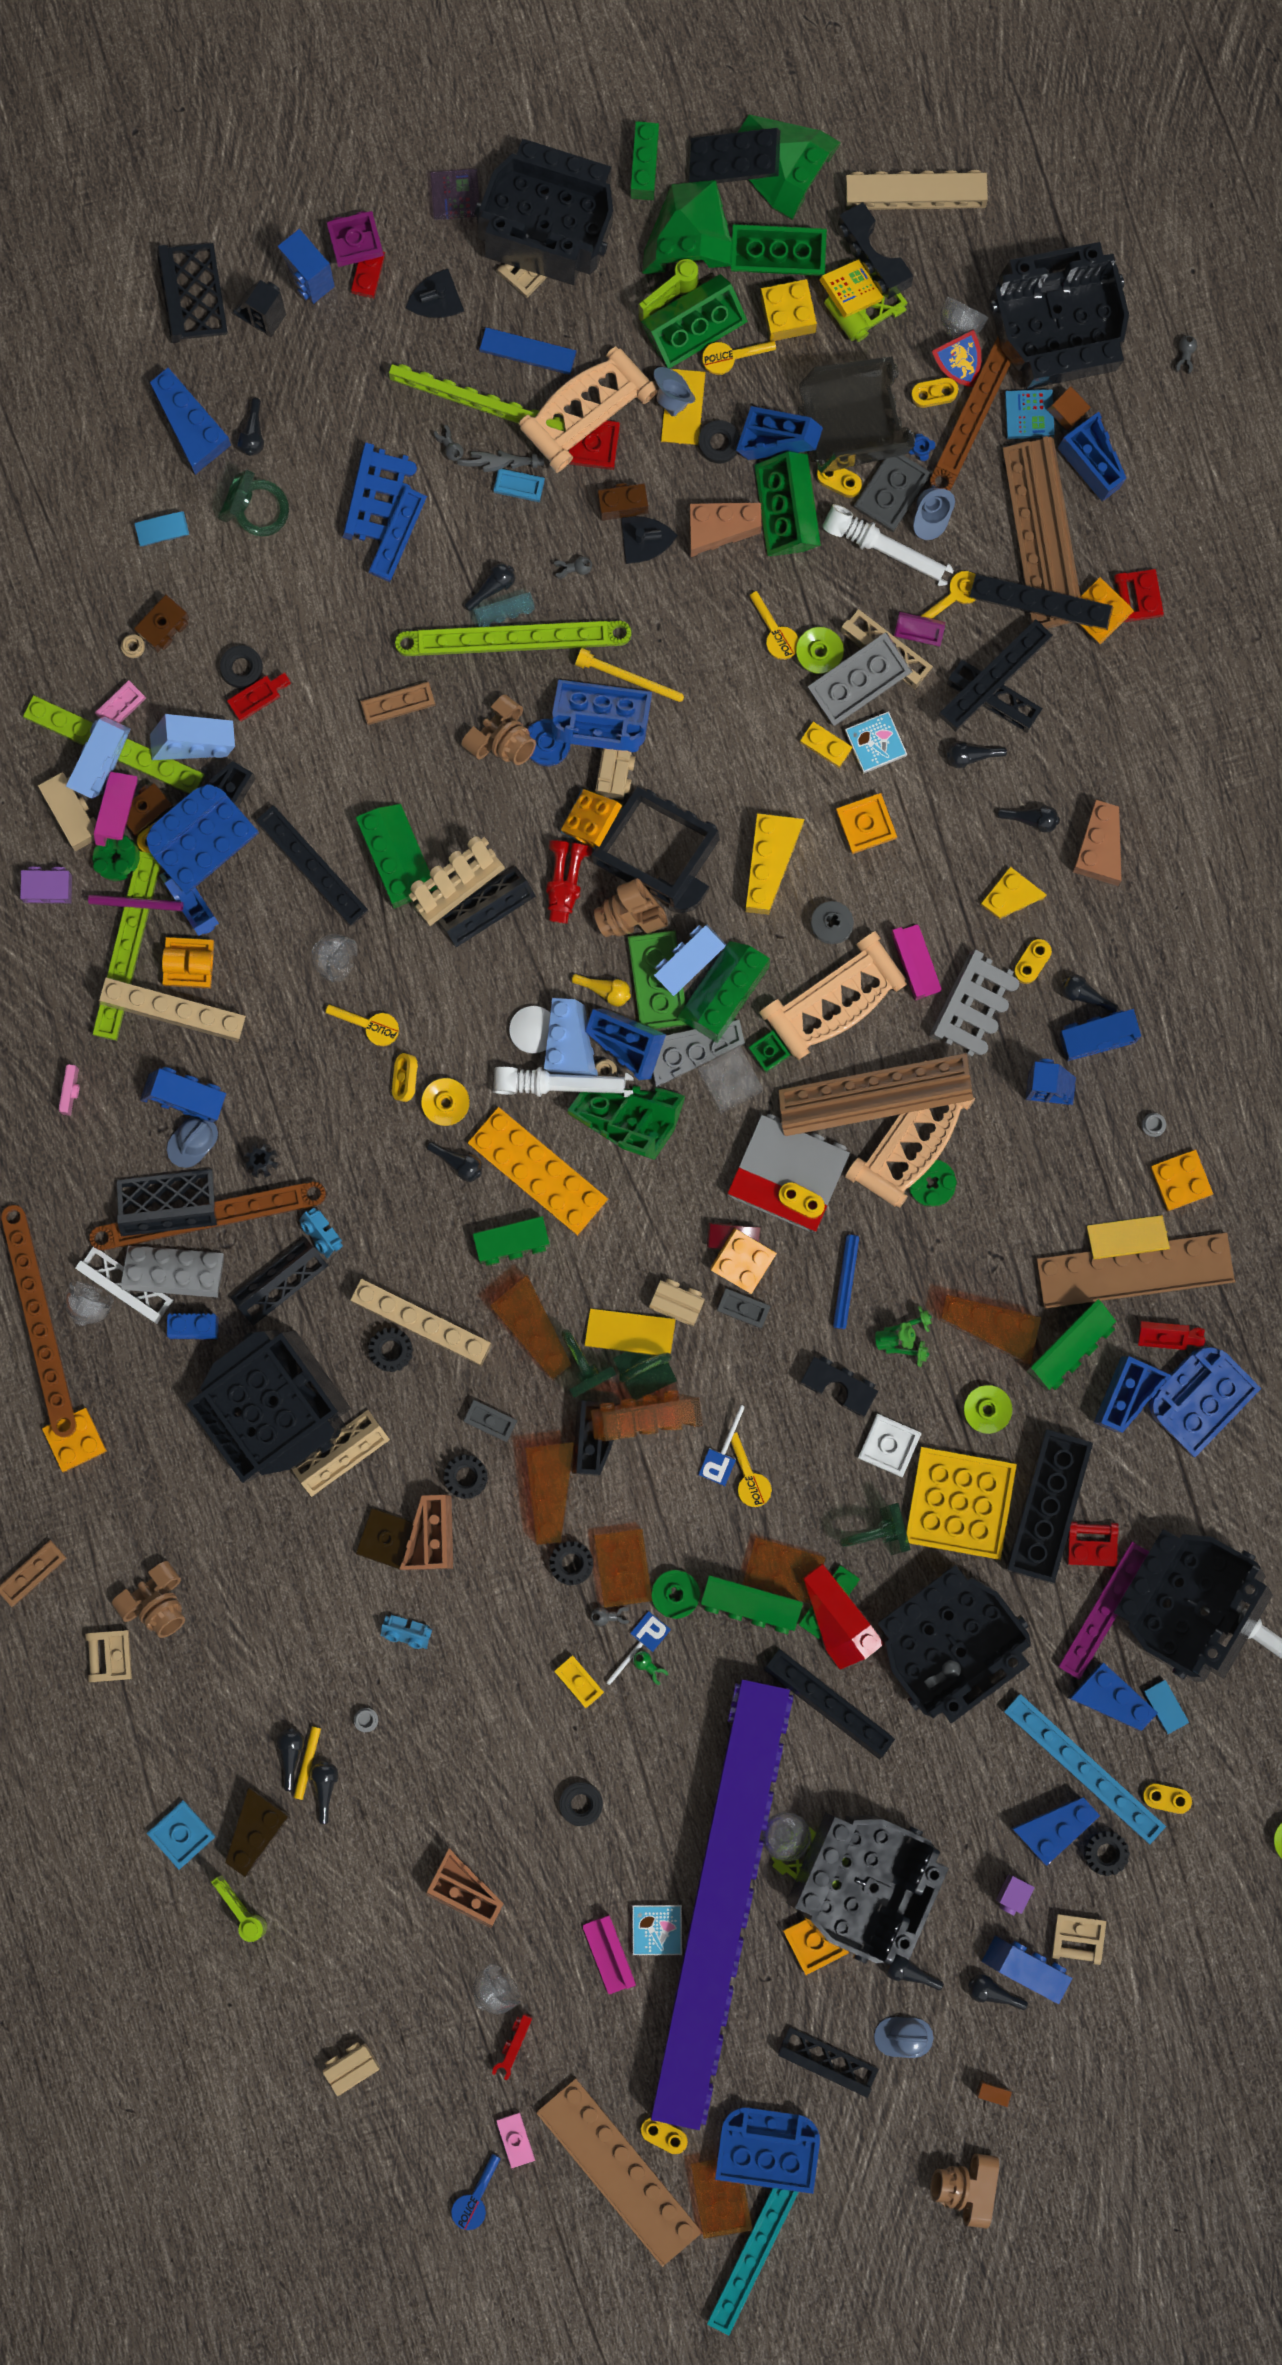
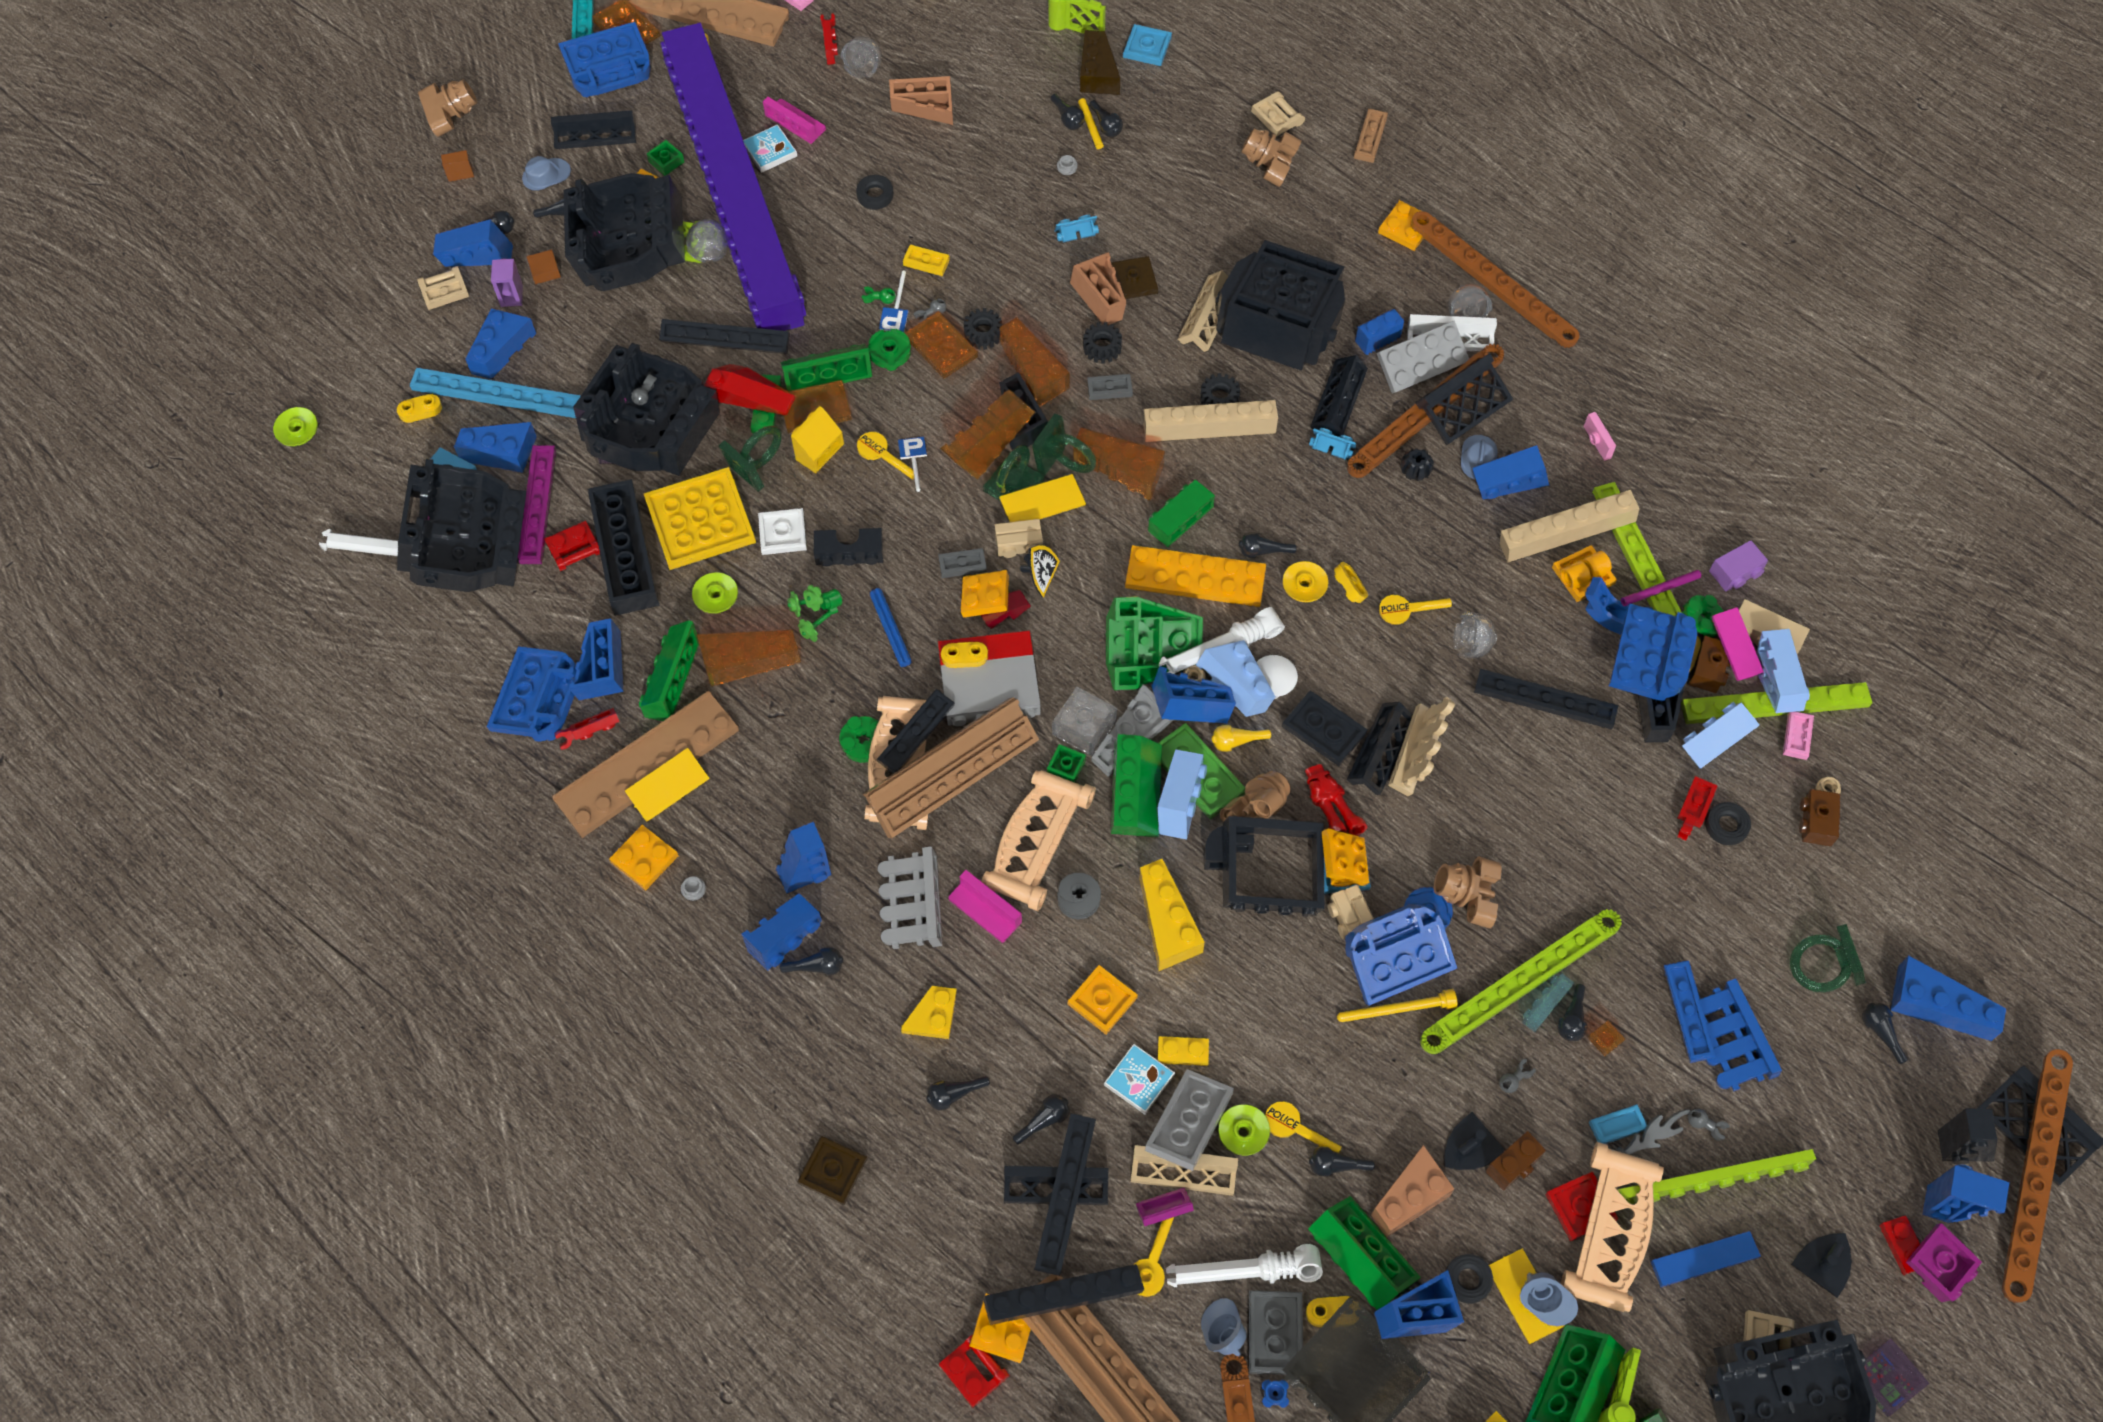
camera: 150 degrees right, 20 degrees down
(161, 528) = (1887, 896): dark azure slope -> none
(229, 256) = (2037, 1176): none -> dark orange plate
(394, 851) = (1487, 744): green slope -> none
(398, 703) = (1576, 870): medium nougat tile -> none
(479, 553) = (1606, 1038): none -> clear orange plate
(523, 952) = (1324, 728): none -> black plate
(677, 1256) = (1041, 565): none -> shield
(720, 358) = (1526, 1365): yellow piece -> none
(771, 588) = (1325, 1162): none -> black piece
(771, 1980) = (665, 158): none -> green piece
(806, 1518) = (816, 440): none -> yellow slope
(887, 1149) = (915, 731): none -> black tile
(965, 1906) = (543, 266): none -> dark orange piece
(1033, 961) = (880, 965): yellow plate -> none
(1100, 847) = (874, 1097): nougat wedge -> none
(1117, 1842) = (446, 339): black tyre -> none
(1165, 810) = (832, 1170): none -> dark brown plate

